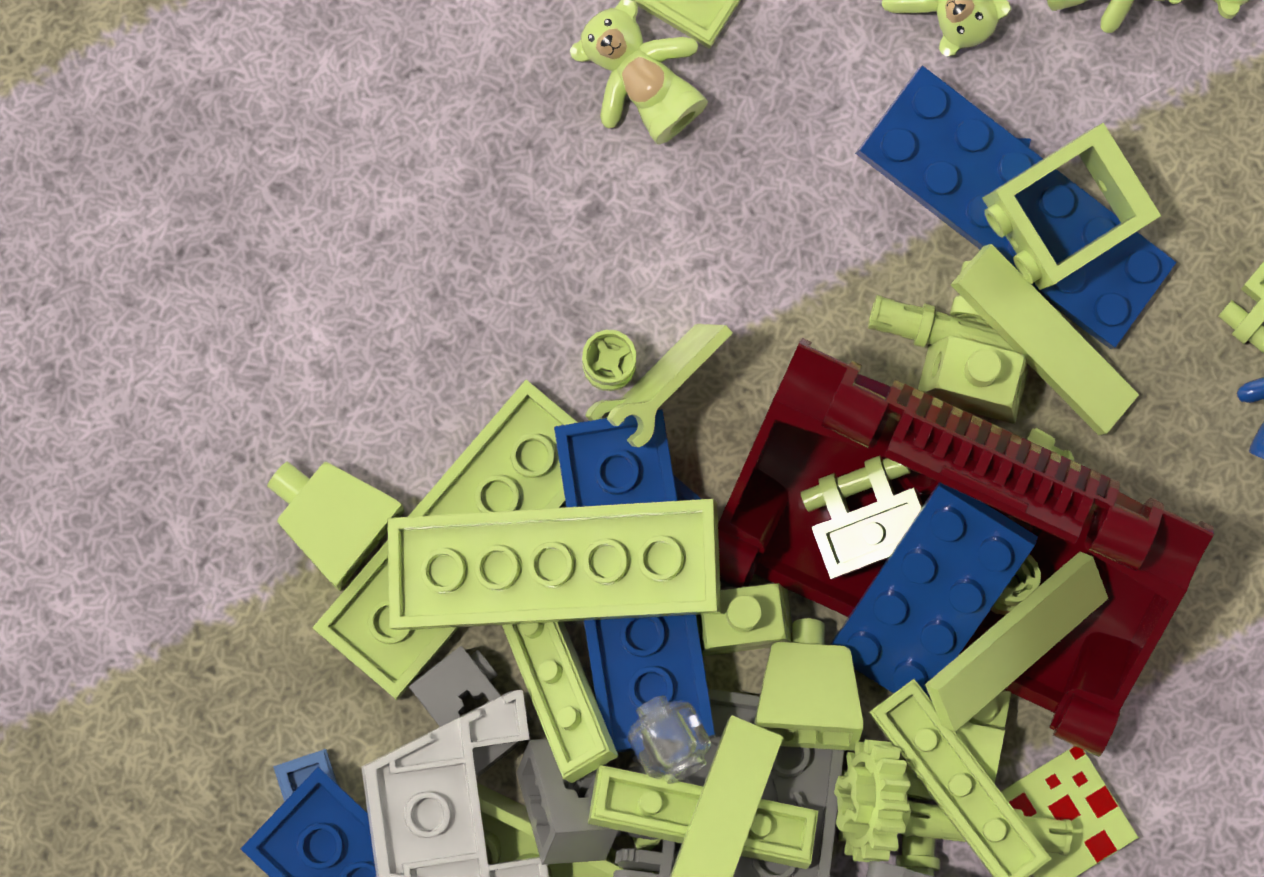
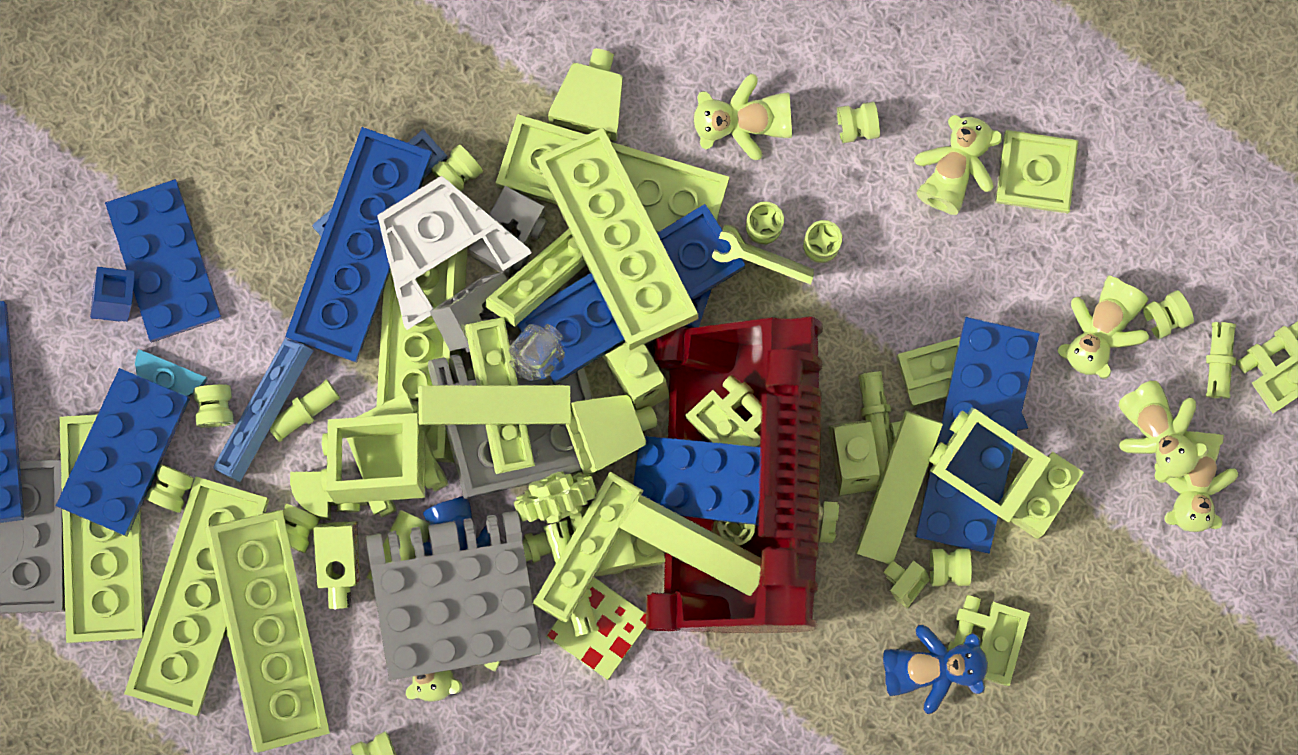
camera: 65 degrees right, 0 degrees up
(352, 742) = (458, 167): none -> yellowish green wheel
(463, 295) = (765, 116): none -> yellowish green piece
(525, 176) = (858, 122): none -> yellowish green wheel
(670, 284) = (825, 236): none -> yellowish green wheel
(901, 232) = (928, 371): none -> yellowish green plate
(1141, 146) = (1047, 496): none -> yellowish green brick
(1172, 385) = (906, 582): none -> yellowish green tile
(1175, 318) = (952, 567): none -> yellowish green wheel

